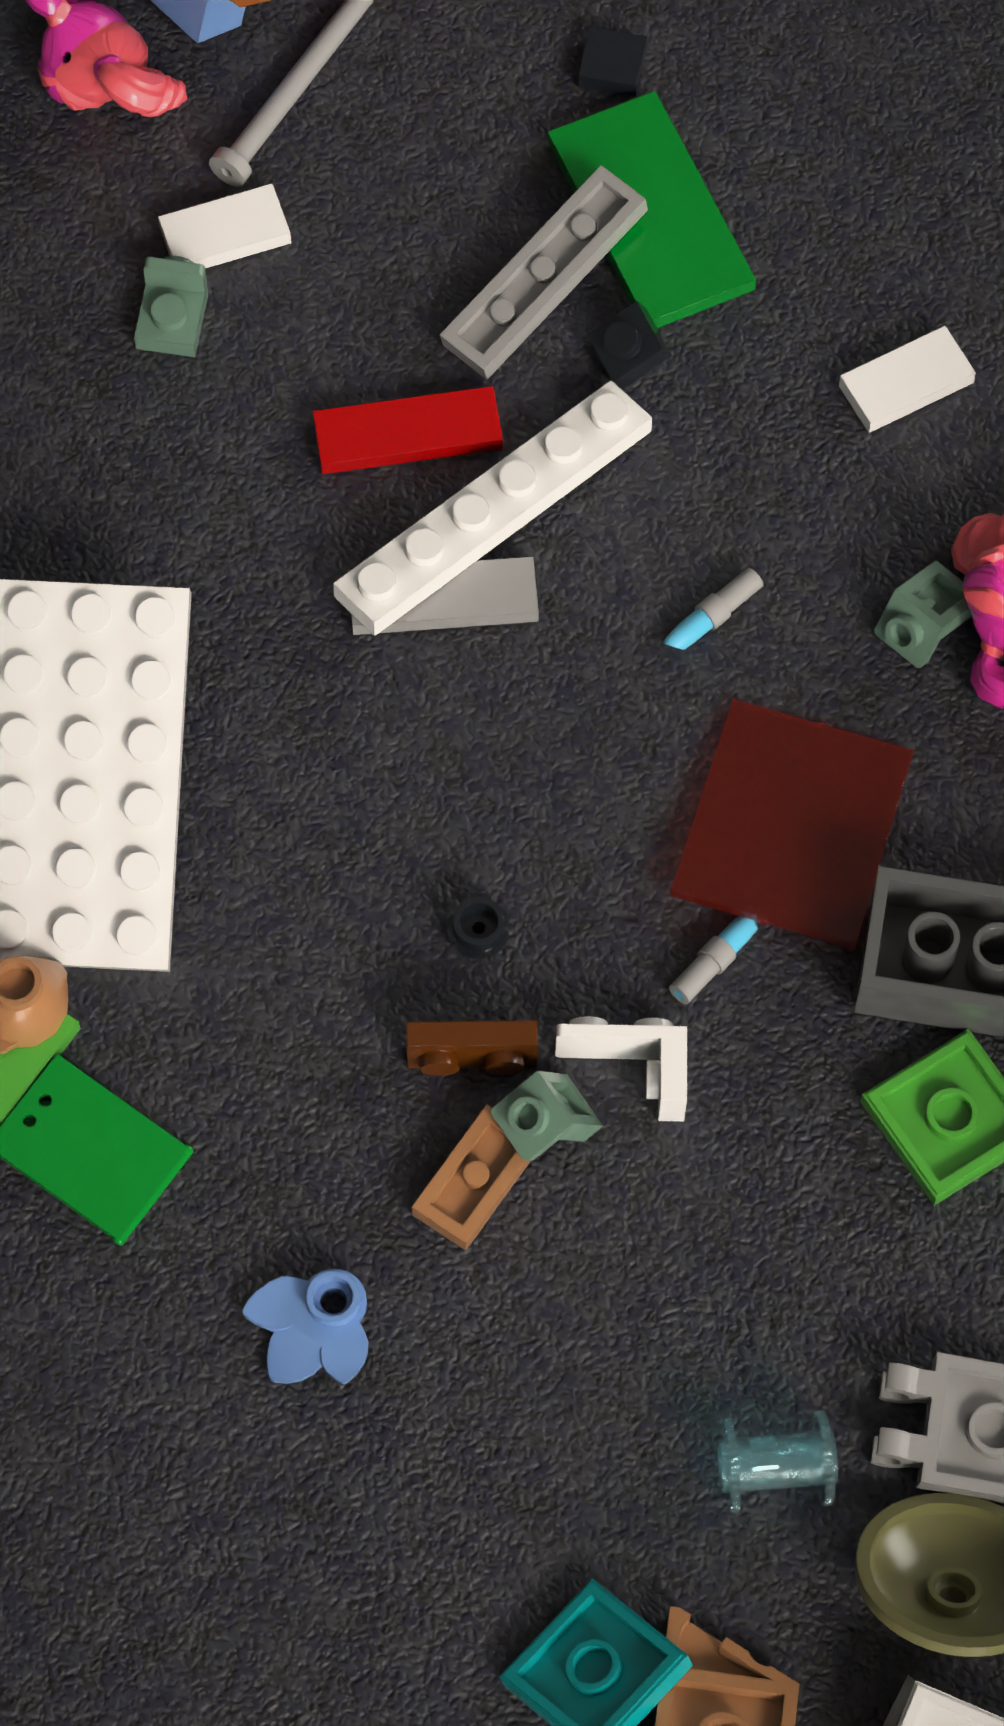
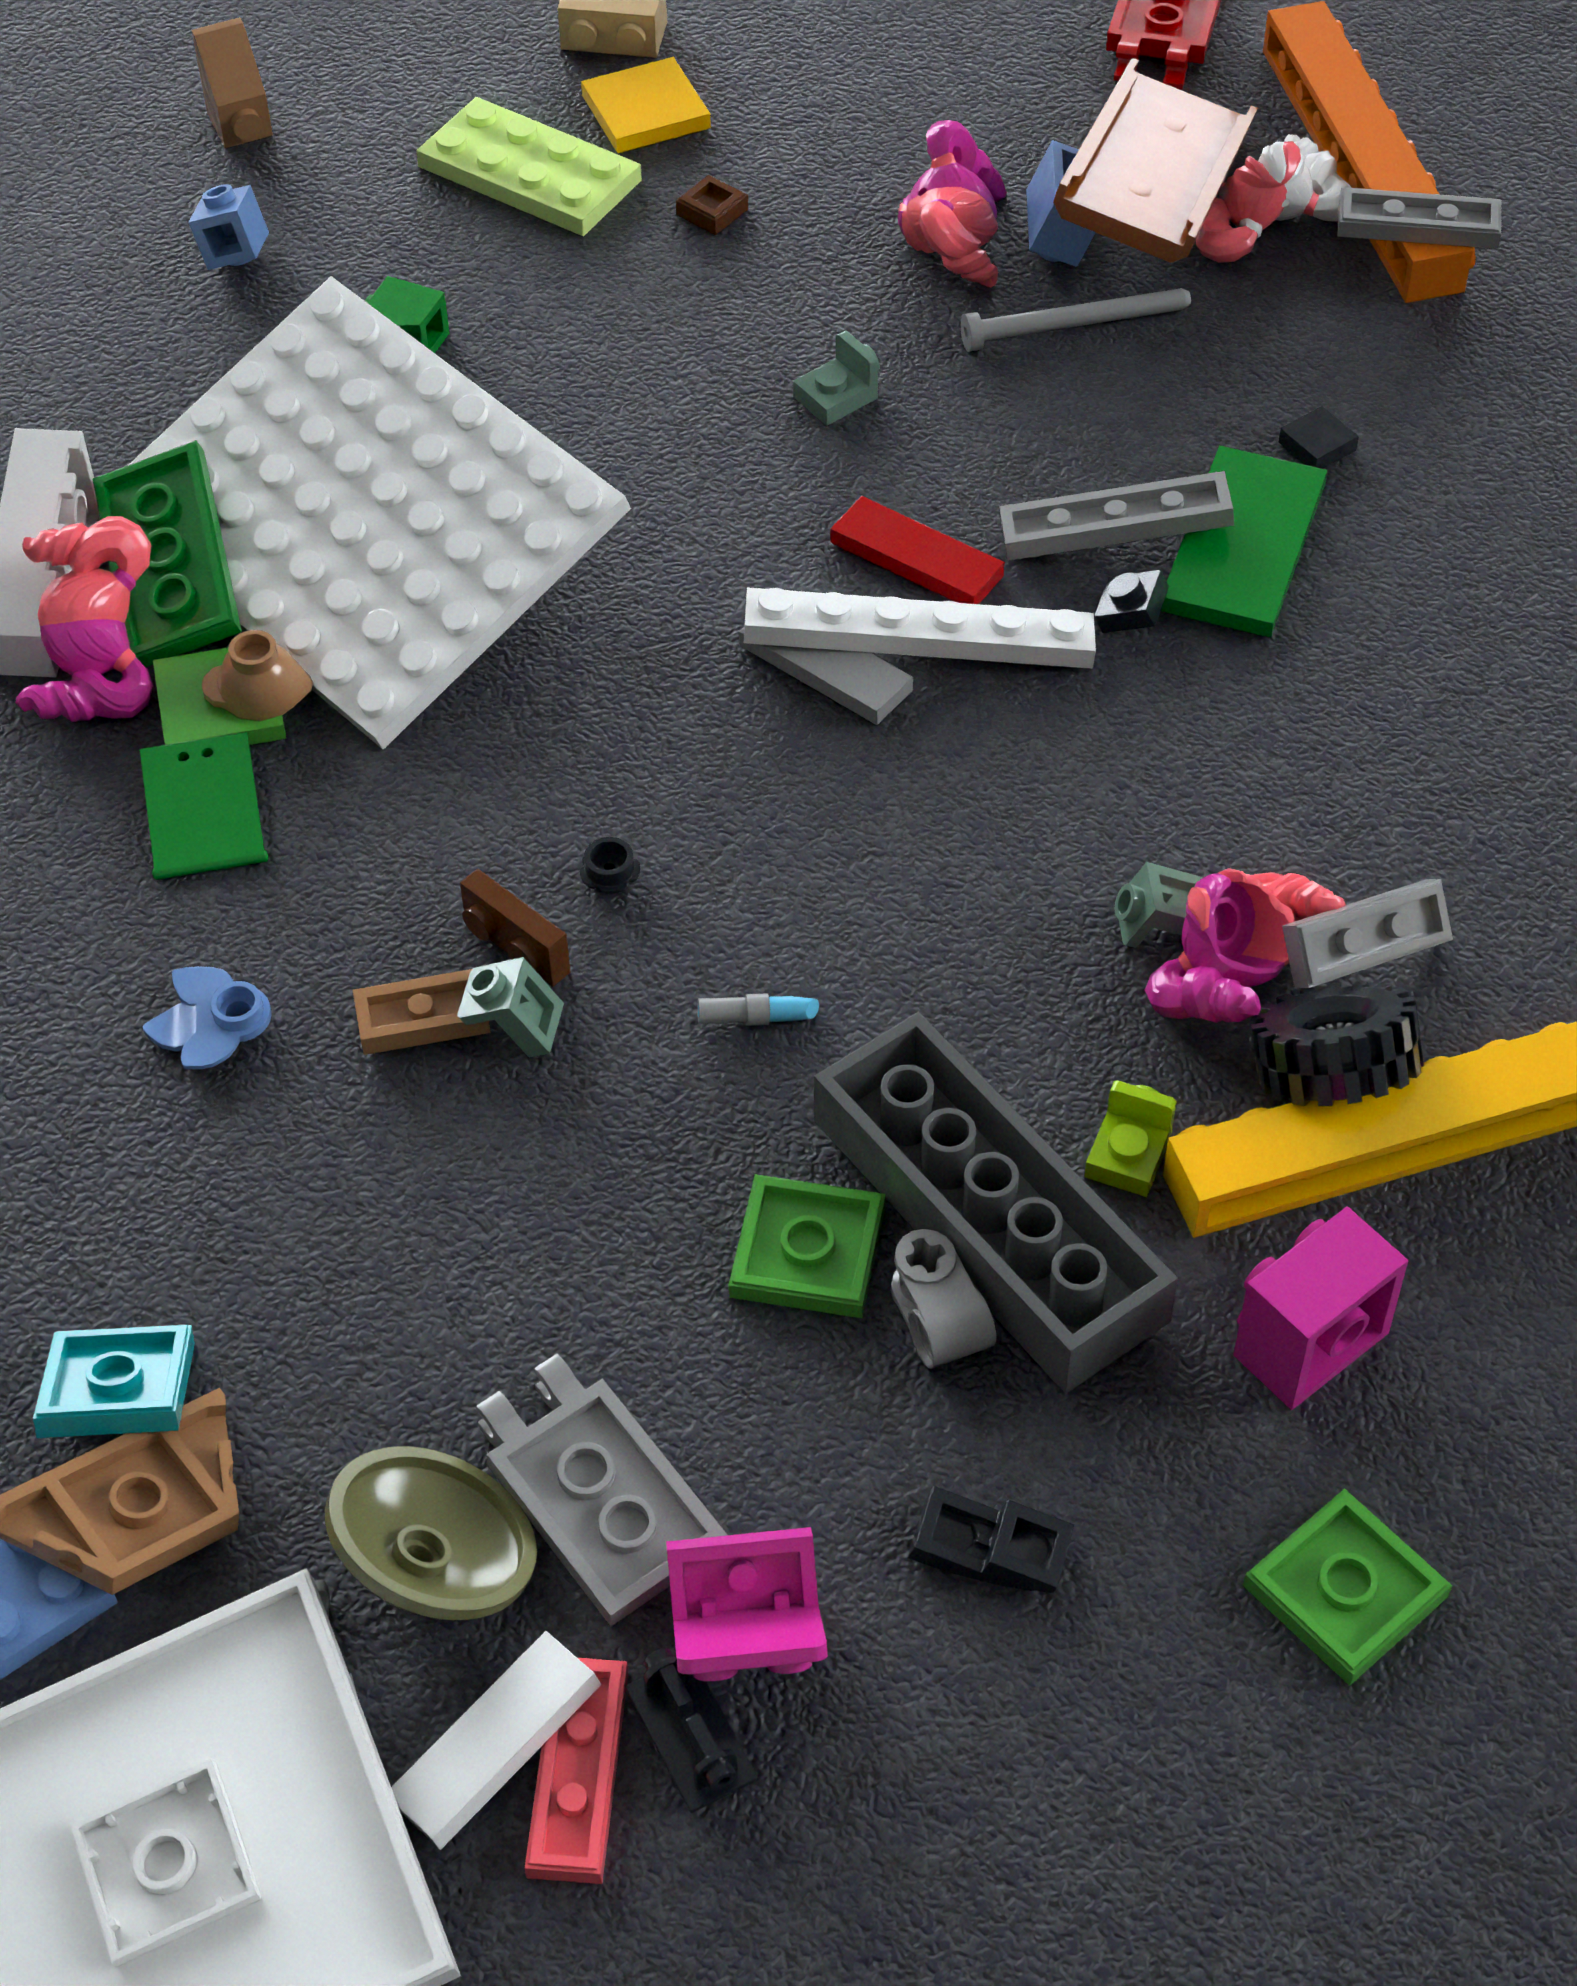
camera: 45 degrees right, 15 degrees down
(227, 227) = (930, 365): white tile -> none
(649, 1040) = (638, 1030): white bracket -> none
(714, 609) = (1009, 801): light grey piece -> none
(777, 1461) = (378, 1336): clear light blue hose -> none
(792, 823) = (910, 951): clear red piece -> none
(907, 379) = (1323, 760): white tile -> none

